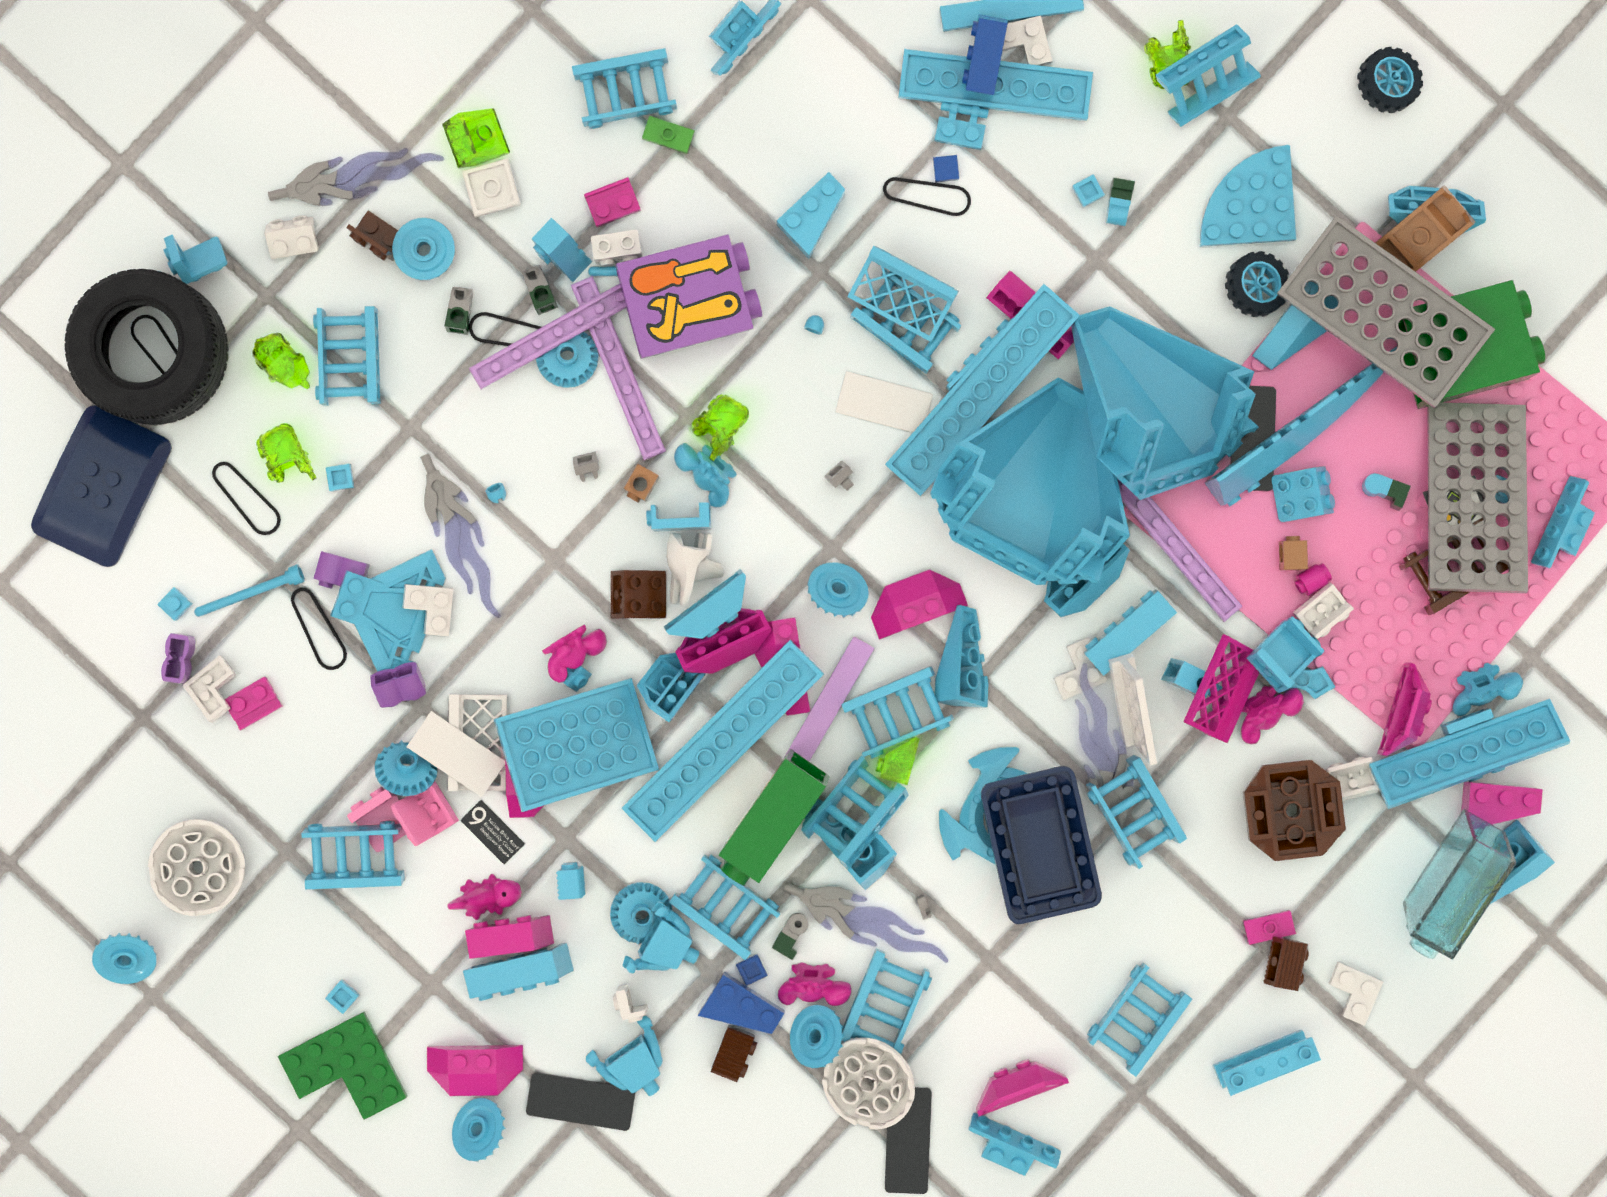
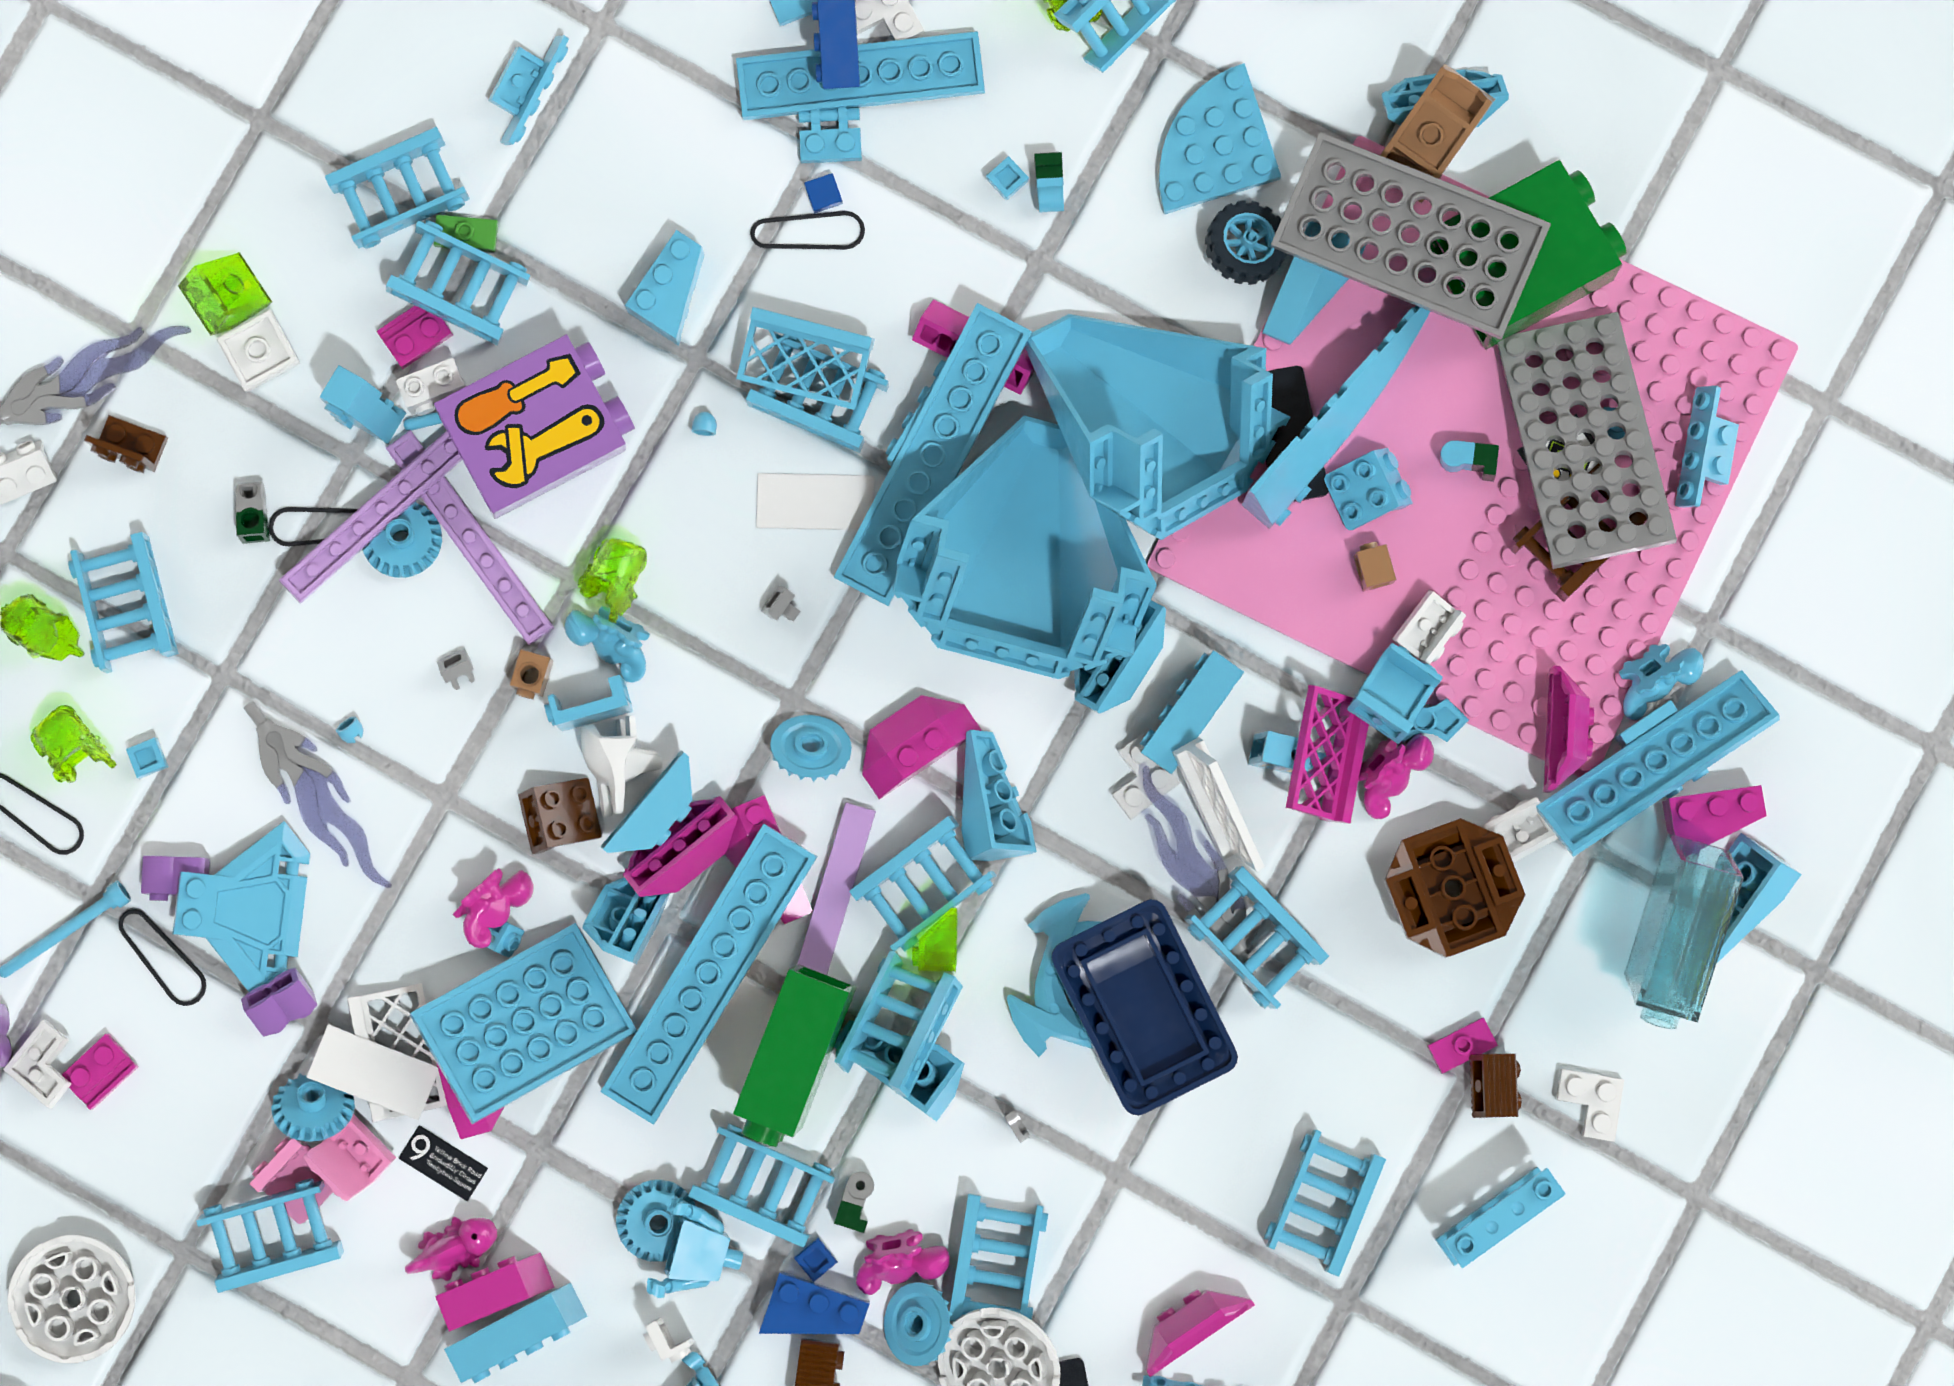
camera: 10 degrees left, 5 degrees down
(414, 235) = (172, 435): medium azure gear -> none
(436, 602) = (303, 885): white plate -> none
(539, 290) = (347, 463): leg -> none
(570, 881) = (556, 1199): medium azure brick -> none
(632, 180) = (460, 312): none -> medium azure fence
(856, 919) = (938, 1161): piece -> none
(1181, 553) = (1231, 597): lavender tile -> none
(1312, 579) = (1406, 592): dark pink brick -> none

